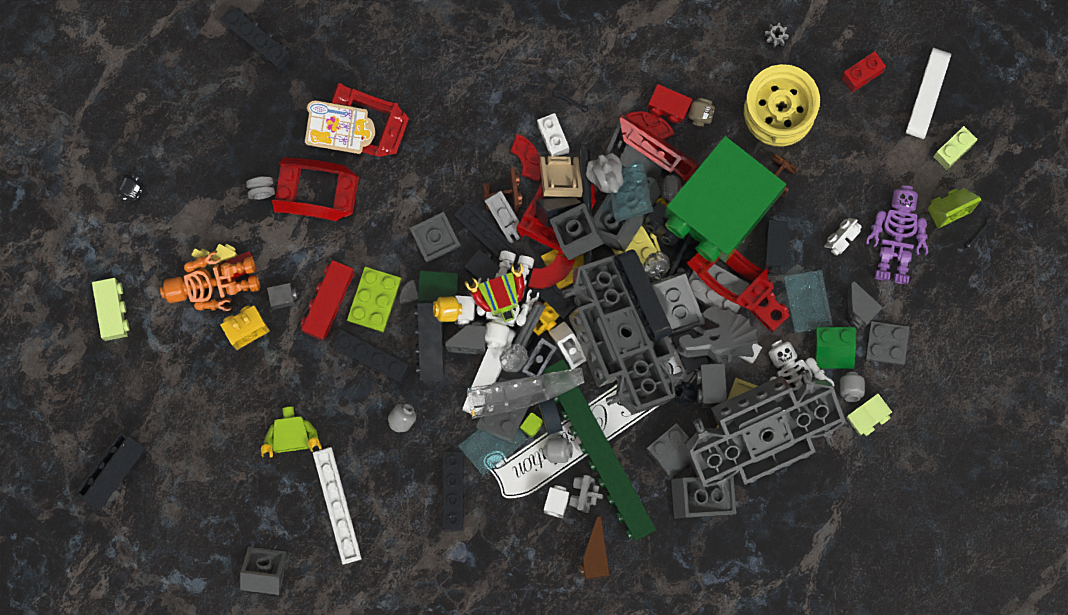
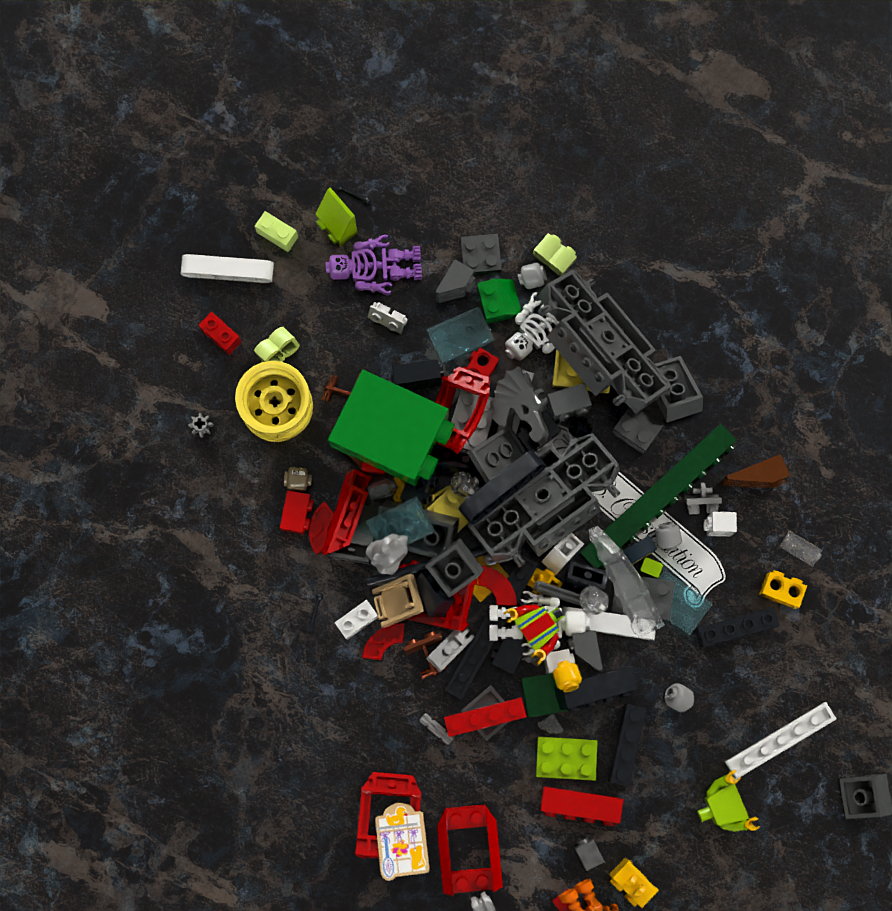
camera: 110 degrees left, 0 degrees up
(431, 229) = (485, 717): none -> red brick
(433, 186) = (436, 728): none -> light grey axle
(473, 544) = (782, 594): none -> yellow brick
(514, 578) = (801, 548): none -> clear hinge
(835, 121) = (277, 346): none -> yellowish green brick

